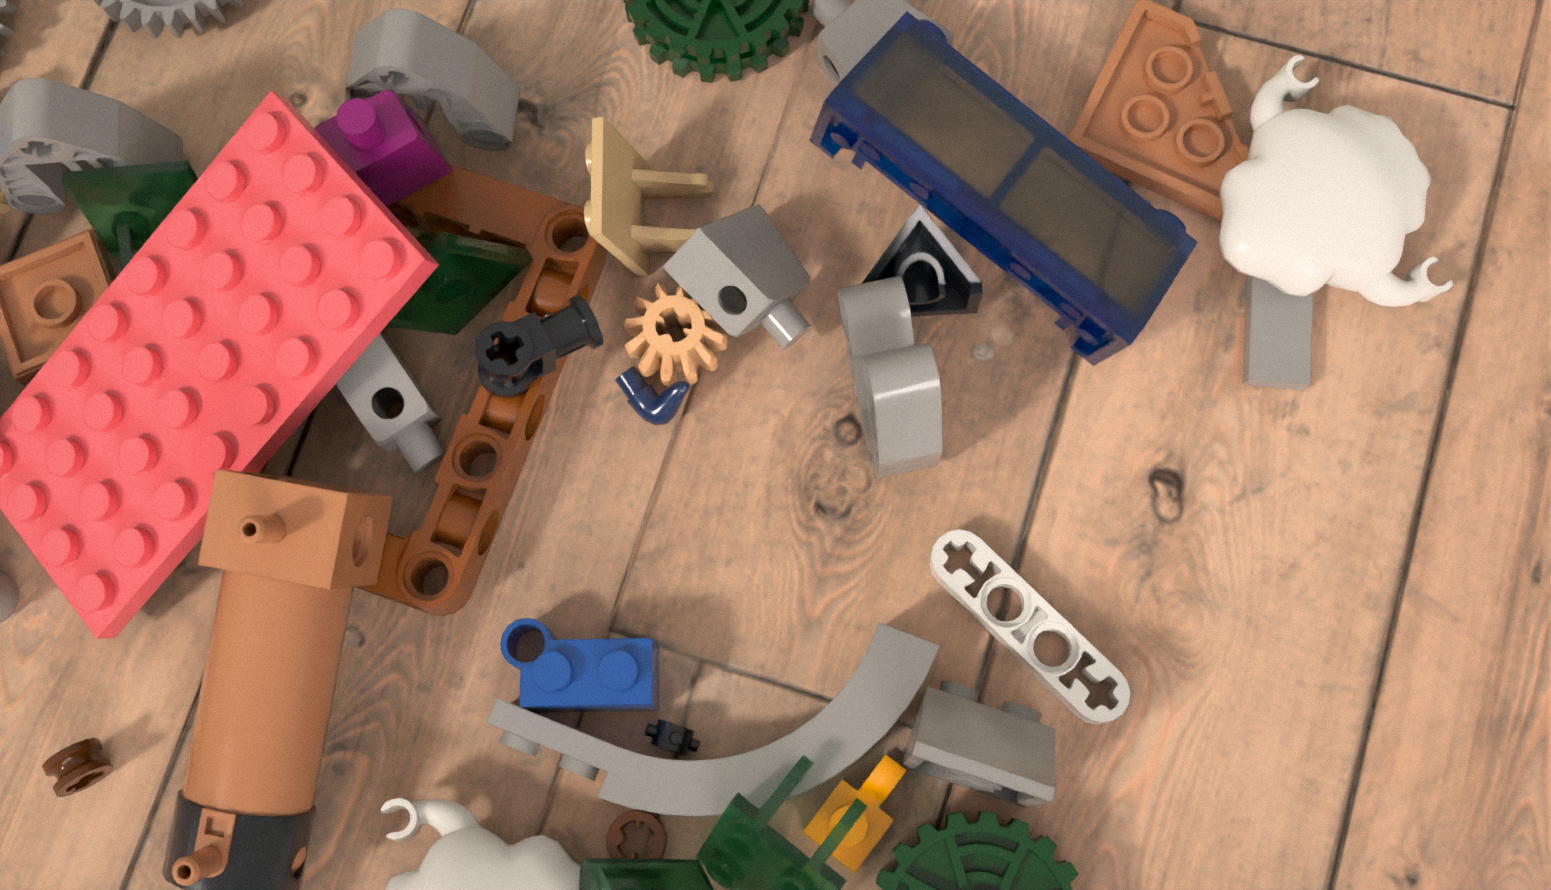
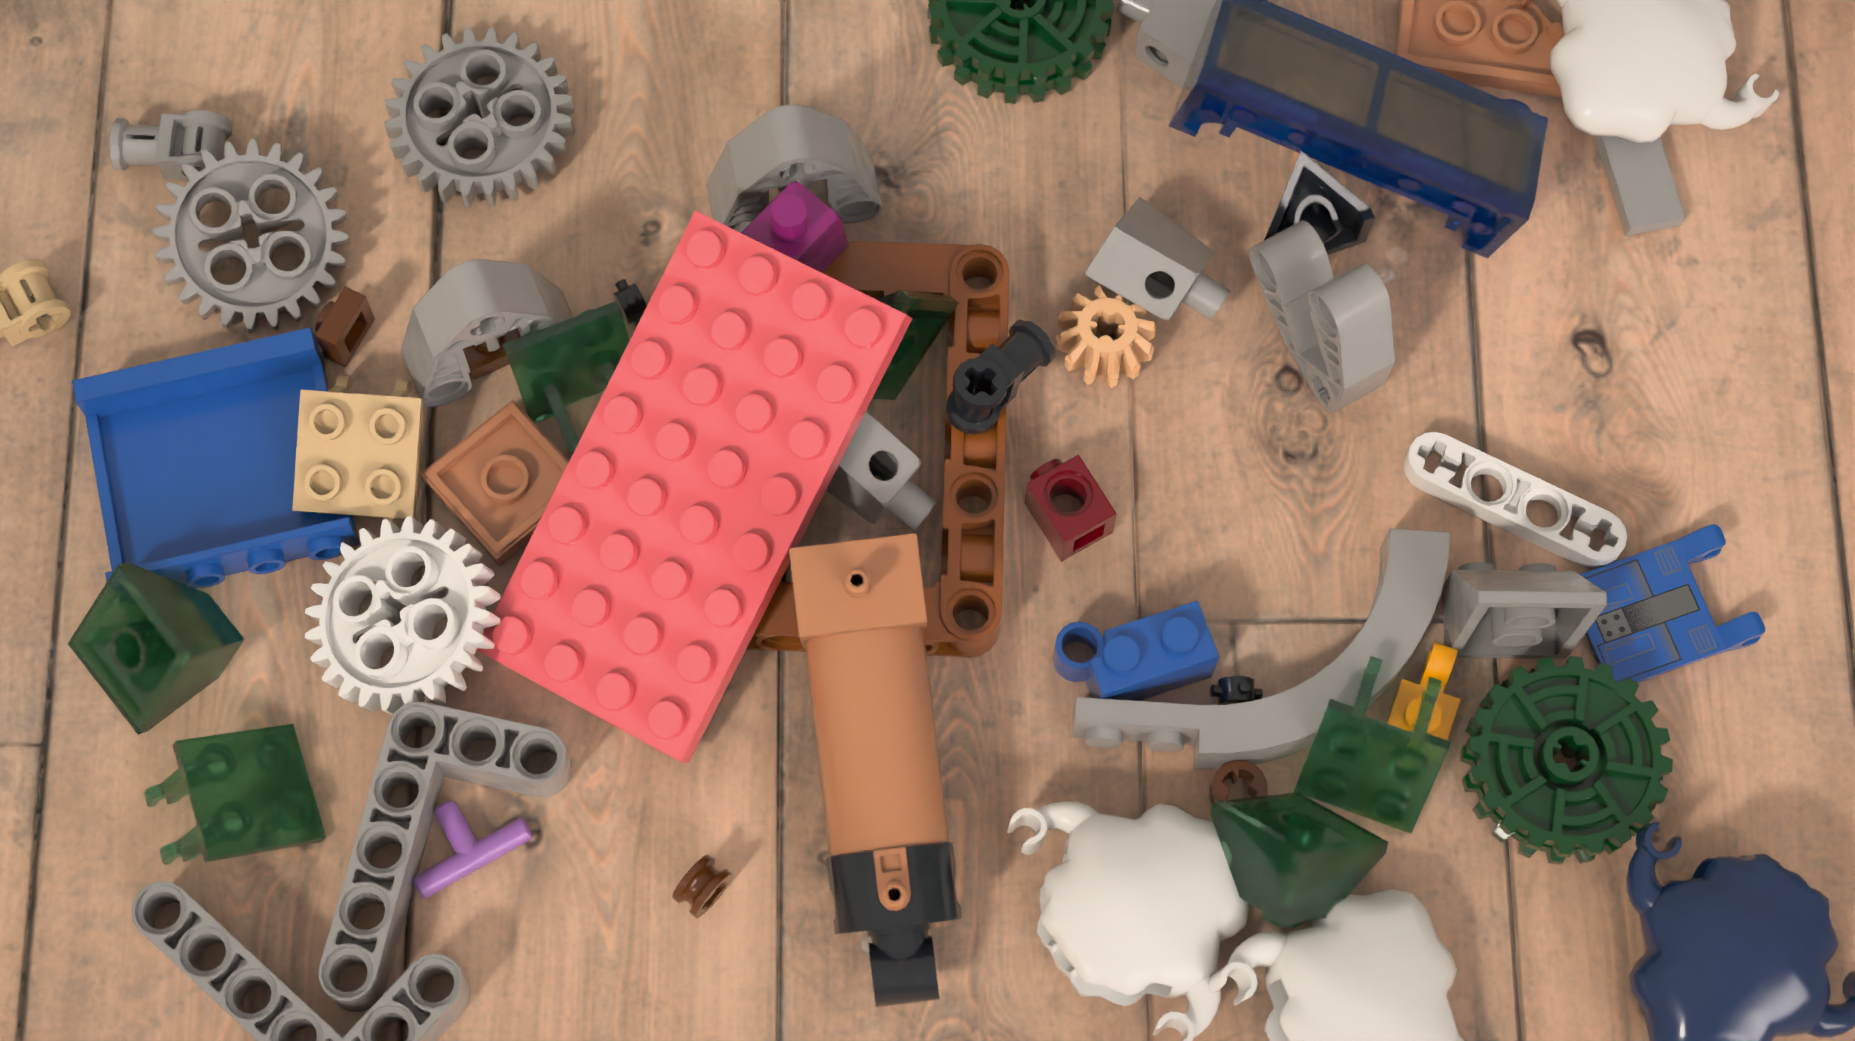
camera: 25 degrees left, 5 degrees down
(579, 521) = (1075, 530): none -> dark red brick
(617, 199) = (1013, 239): tan plate -> none
(647, 402) = (1100, 408): dark blue animal -> none
(1127, 790) = (1658, 614): none -> blue flag

